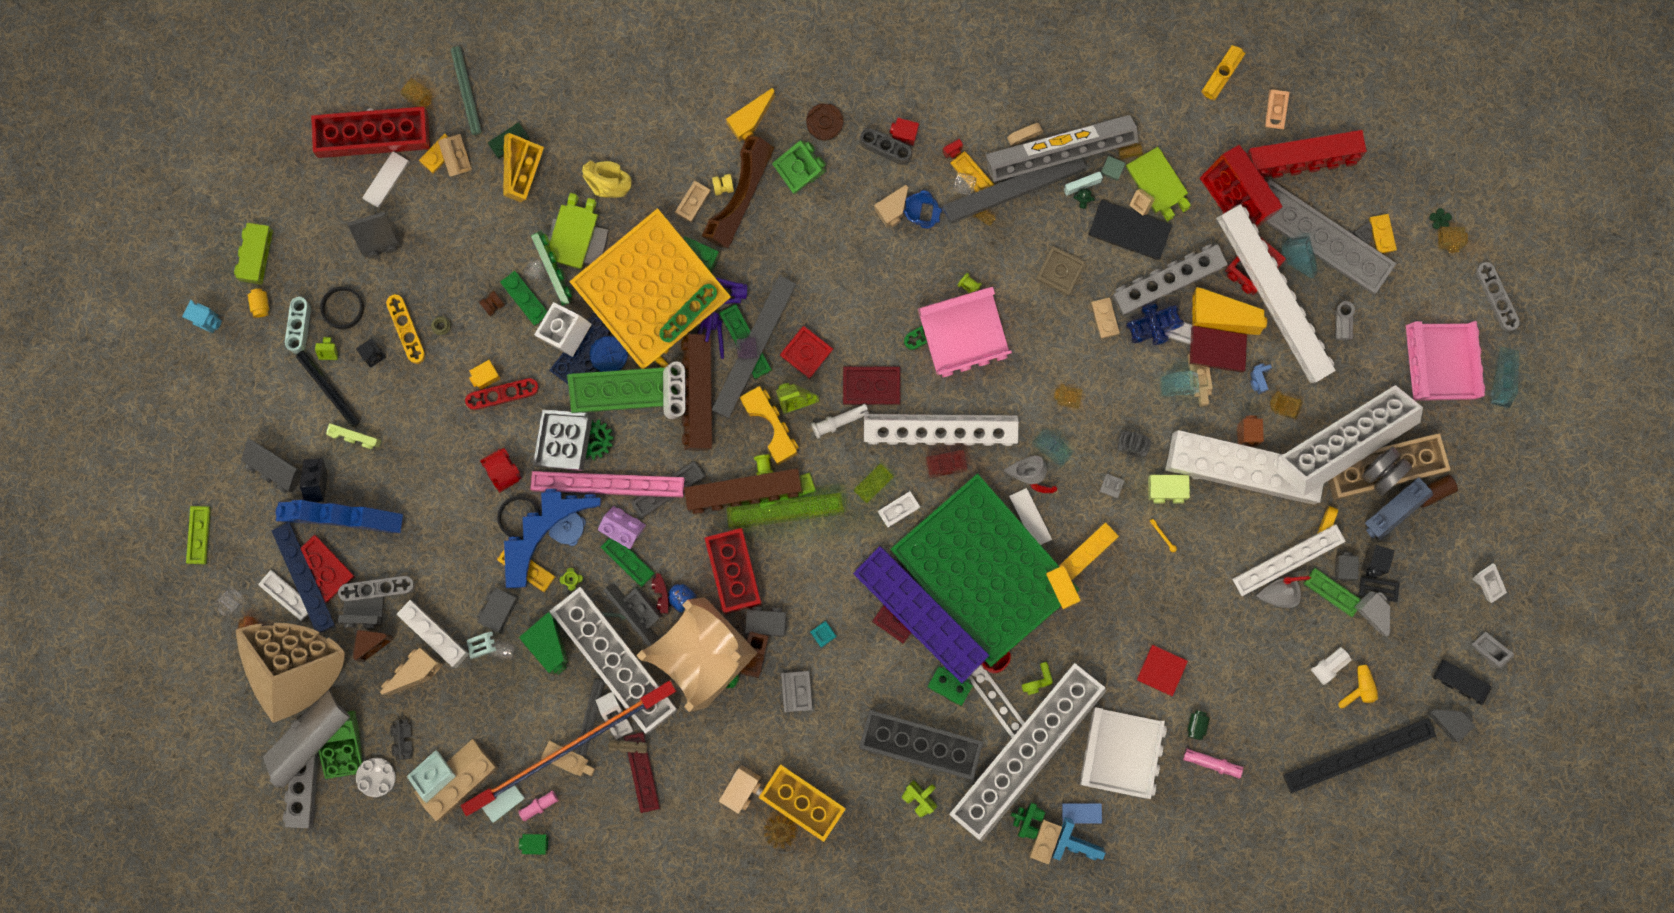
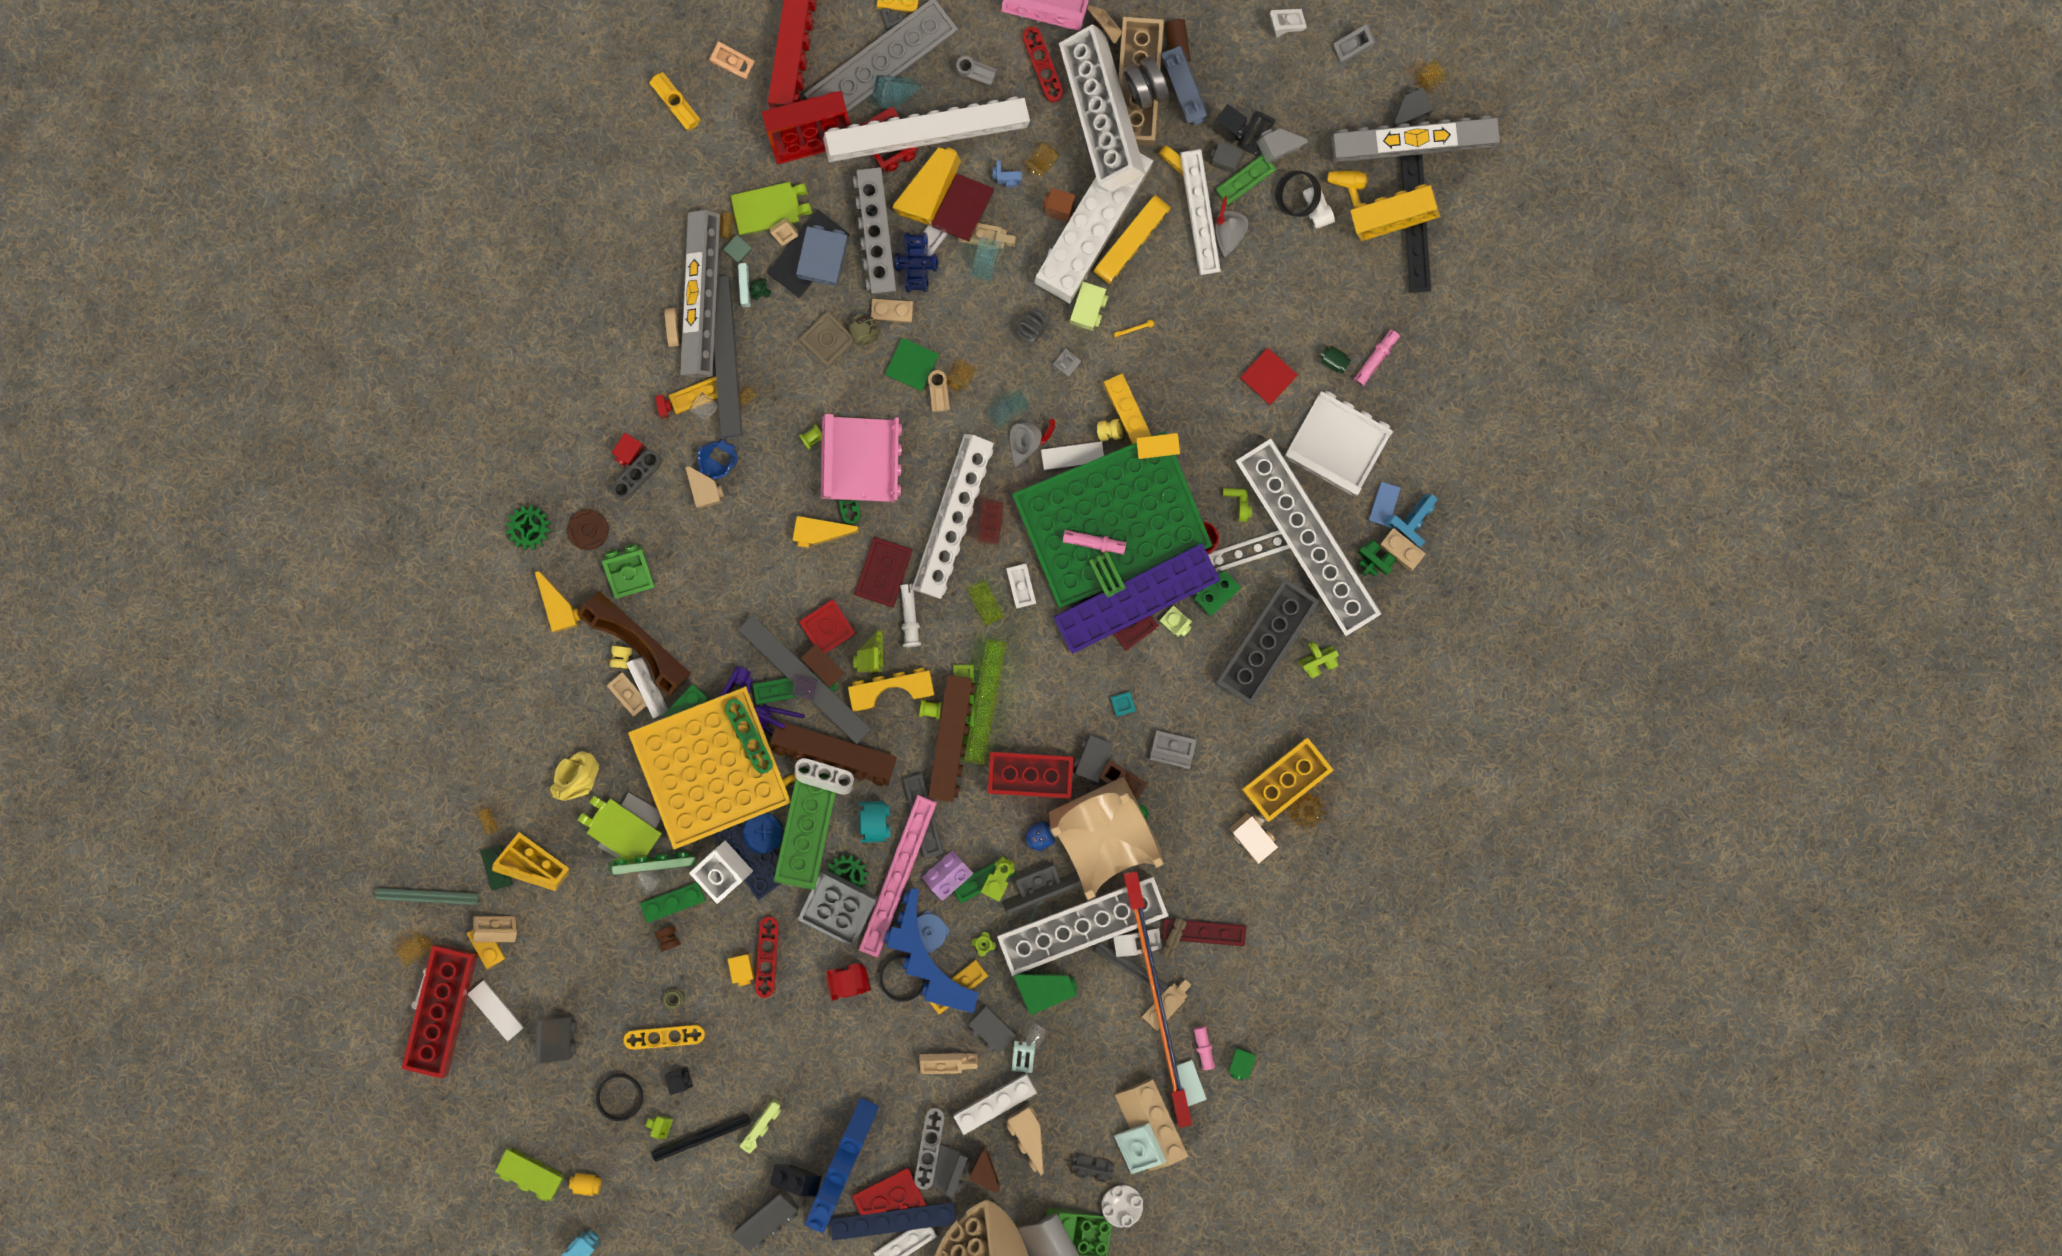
camera: 75 degrees left, 5 degrees up
(294, 317) = (613, 1149): light aqua beam -> none
(456, 581) = (947, 1063): none -> tan hinge
(546, 118) = (486, 819): none -> clear yellow pin
(627, 571) = (996, 883): none -> lime brick
(648, 446) = (873, 821): none -> teal brick
(659, 586) = (1021, 855): dark red slope -> none
(700, 218) = (647, 687): none -> white tile
(771, 358) = (822, 665): none -> reddish brown tile
(817, 69) = (529, 519): none -> green gear
(888, 317) = (814, 531): none -> yellow slope
(912, 658) = (1176, 622): none -> yellowish green bracket
(944, 570) = (1100, 559): none -> bright green tile
(958, 560) = (1086, 540): none -> bright pink pin
(1045, 382) = (939, 393): none -> tan piece
(1063, 351) = (912, 364): none -> green tile
(1064, 542) = (1110, 430): none -> light yellow wheel
(1079, 298) = (863, 329): none -> olive head
(1132, 241) = (822, 255): none -> sand blue brick
(1244, 507) = (1131, 239): none -> yellow beam
(1337, 626) = (1279, 193): none -> black tyre
(1350, 736) = (1395, 212): none -> yellow brick
(1371, 378) = (1044, 64): none -> red beam
(1424, 734) = (1415, 140): none -> light grey brick
(1429, 420) = (1105, 23): none -> tan slope
(1462, 681) = (1374, 84): black beam -> none
(1488, 730) = (1431, 75): none -> clear yellow brick

